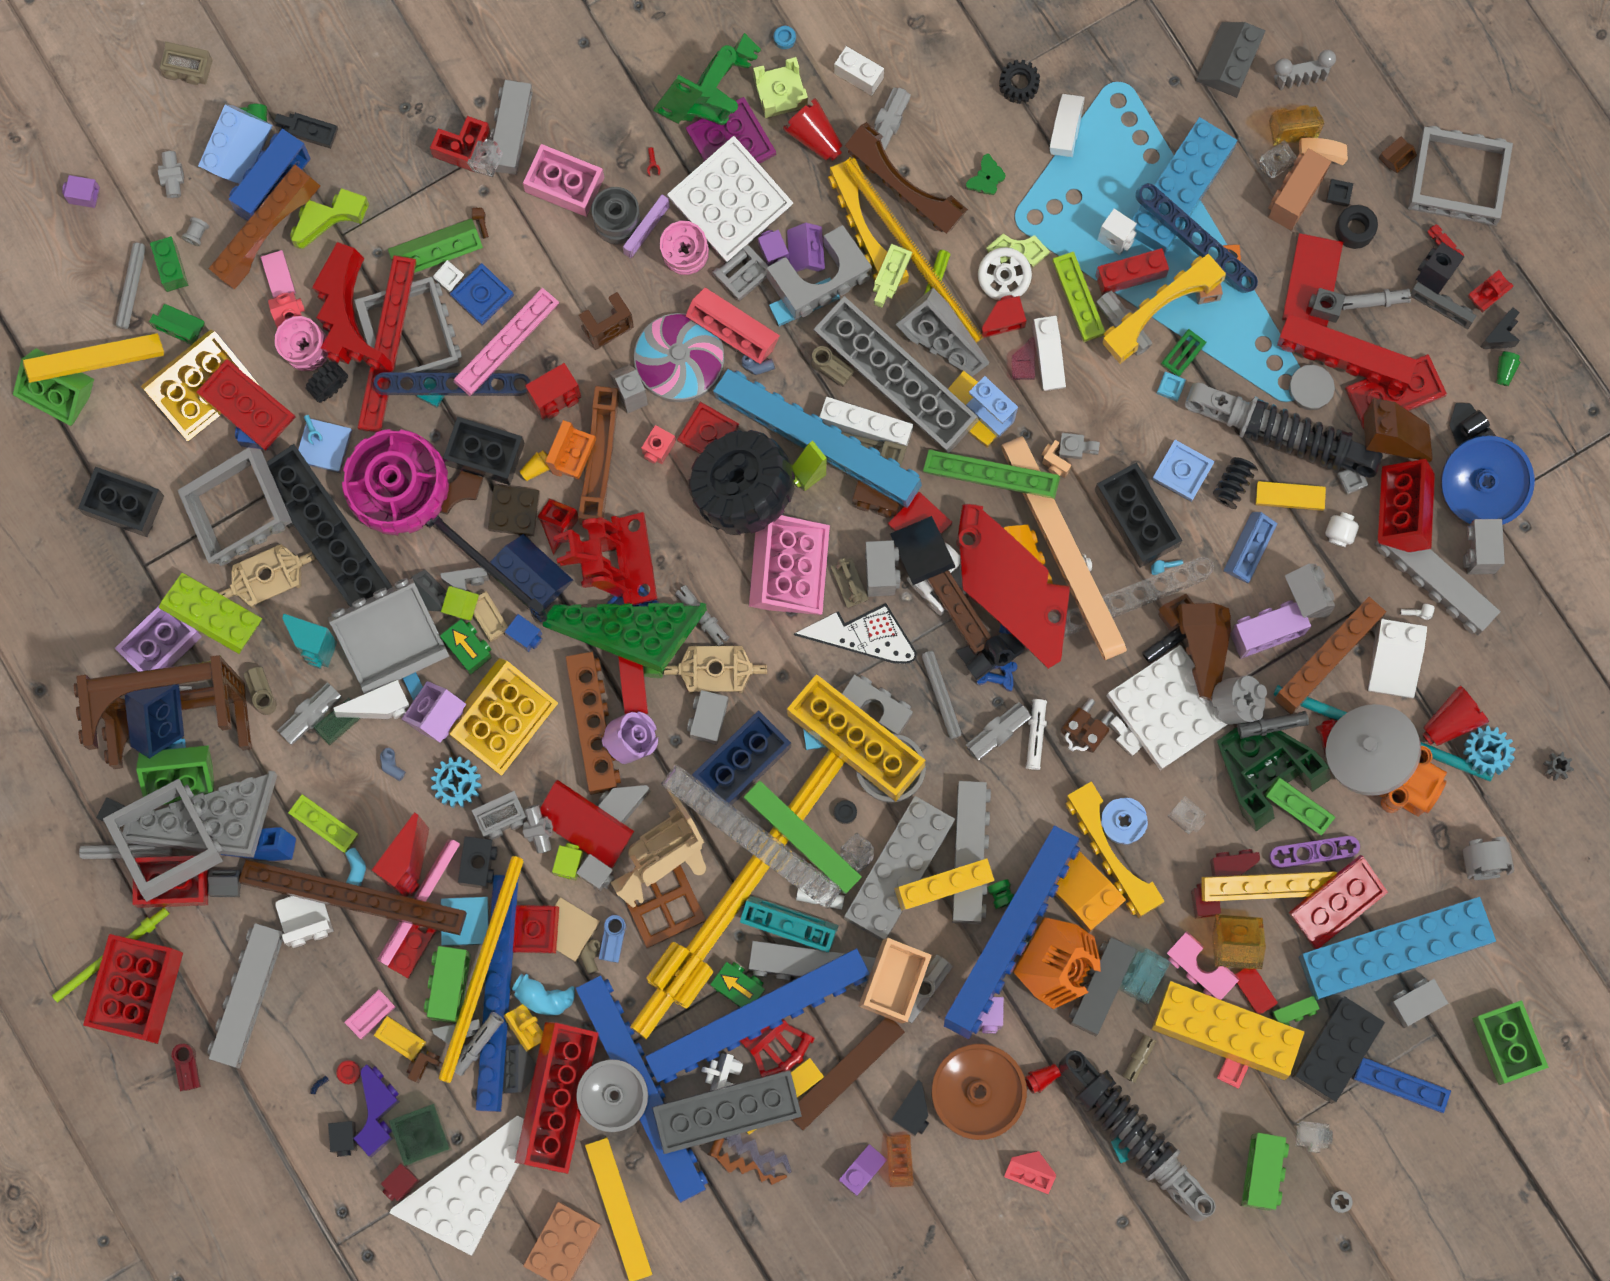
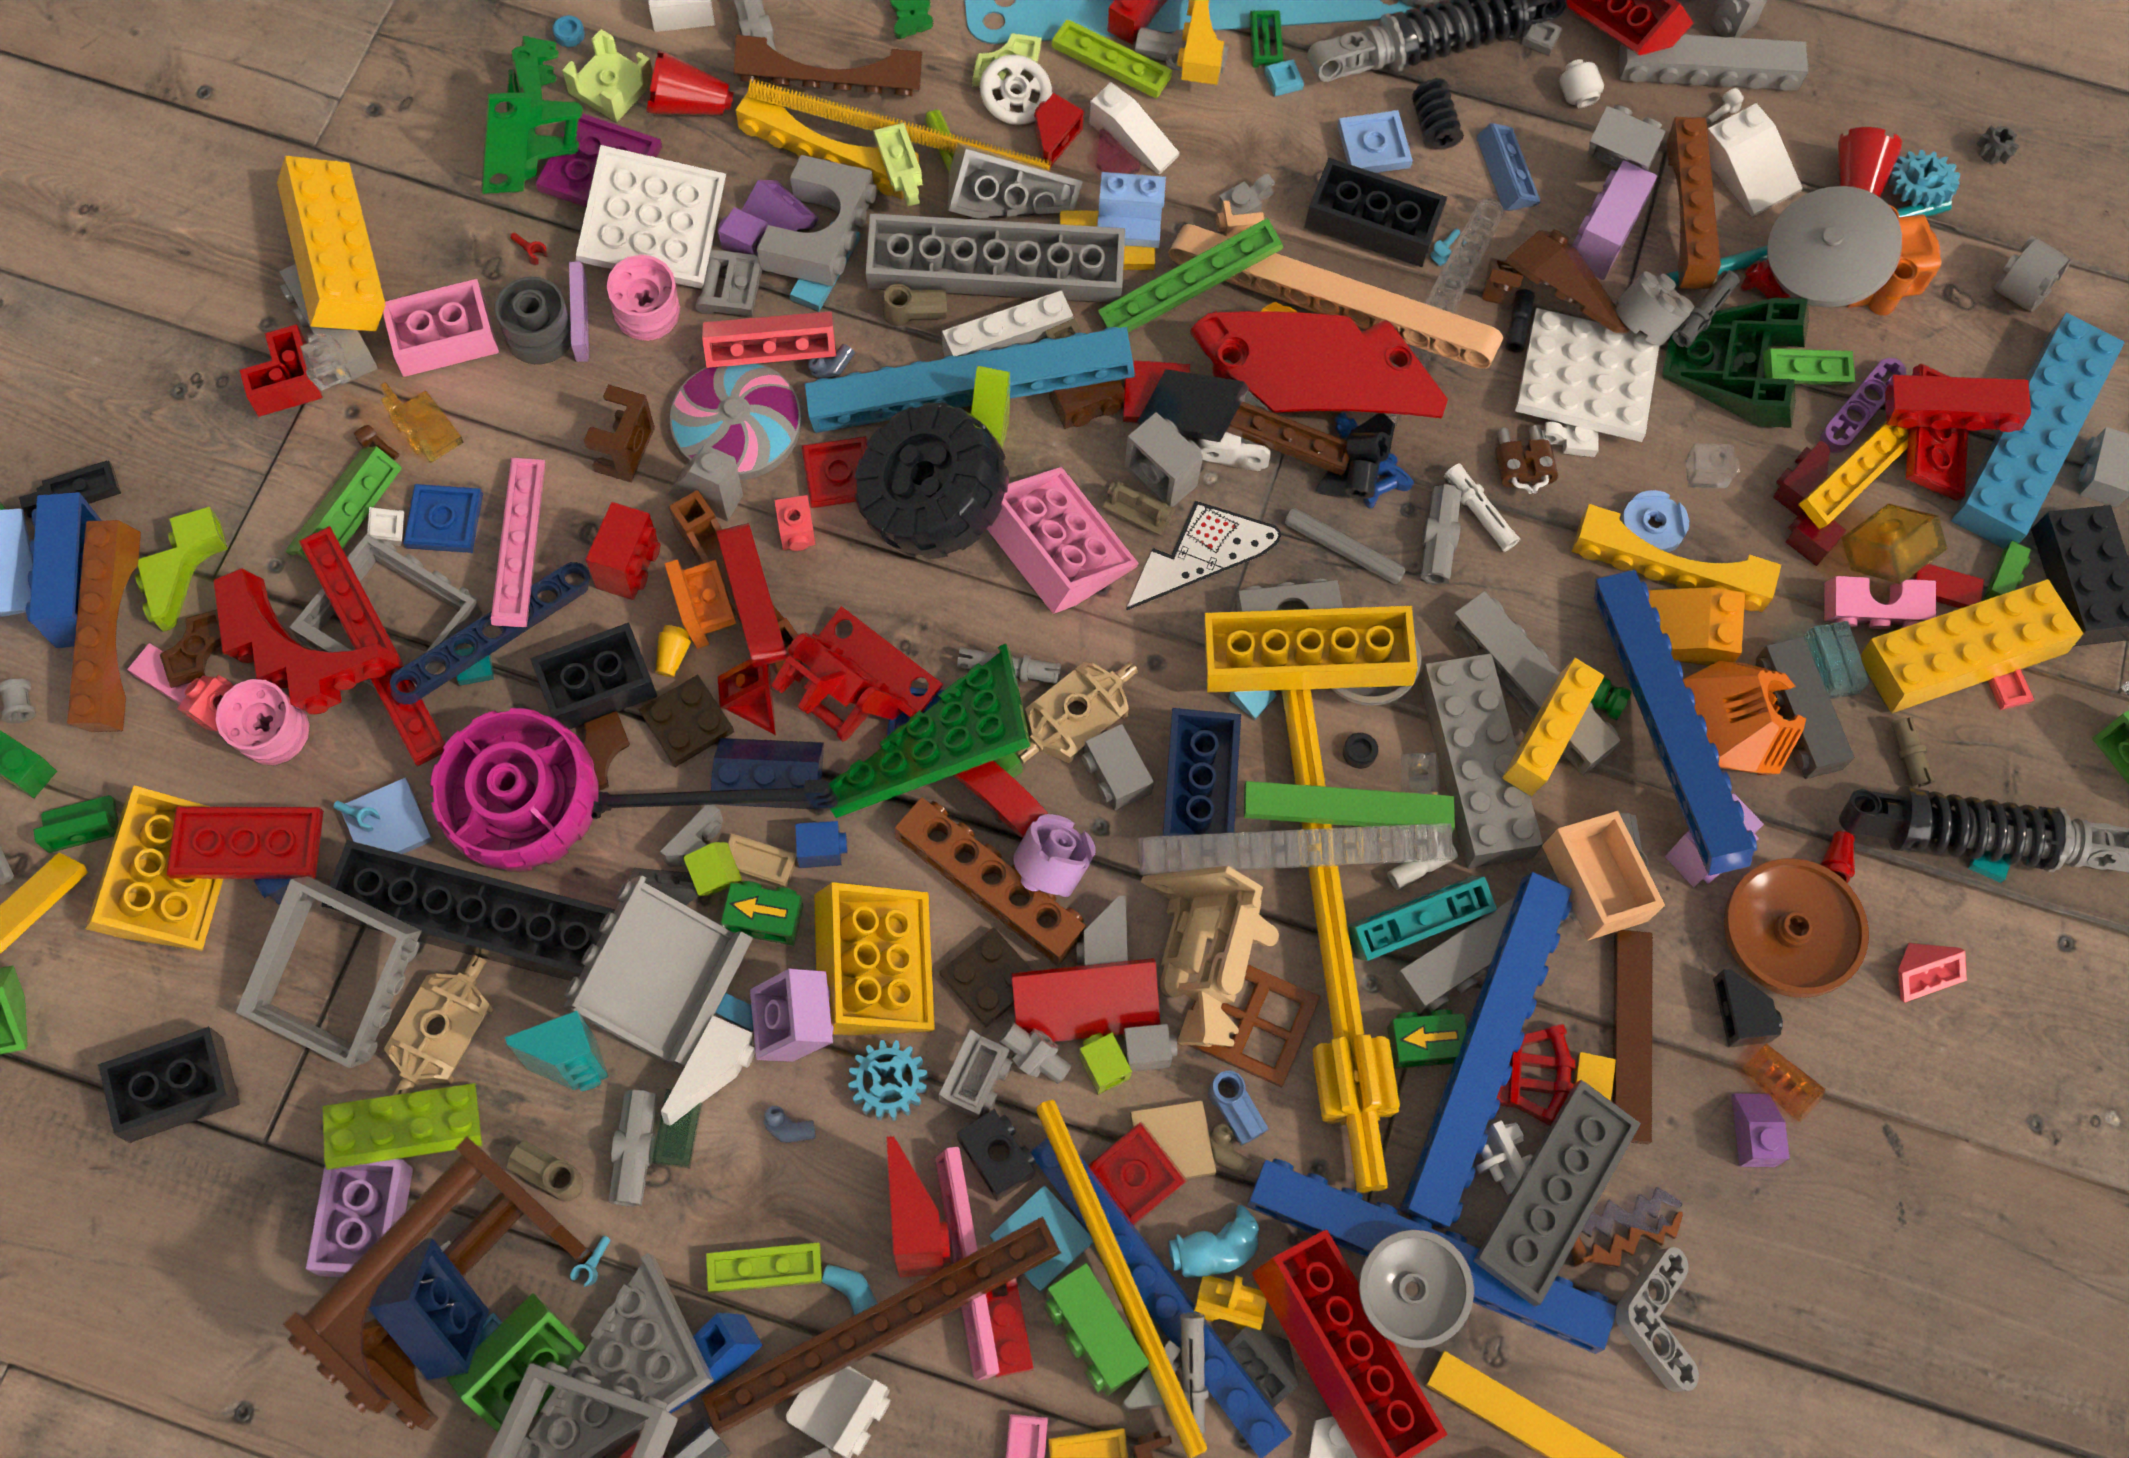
camera: 45 degrees left, 10 degrees down
(245, 754) = (591, 1263): none -> medium azure hand
(293, 275) = (189, 656): none -> reddish brown tile
(326, 381) = (330, 743): black tyre -> none
(512, 230) = (422, 423): none -> clear yellow bracket
(542, 85) = (330, 244): none -> yellow brick
(547, 767) = (984, 976): none -> dark brown plate
(594, 472) = (751, 595): none -> red beam
(717, 1205) = (1639, 1310): none -> light grey beam
(1290, 495) = (1499, 92): yellow tile -> none
(1351, 895) = (1957, 402): none -> red brick

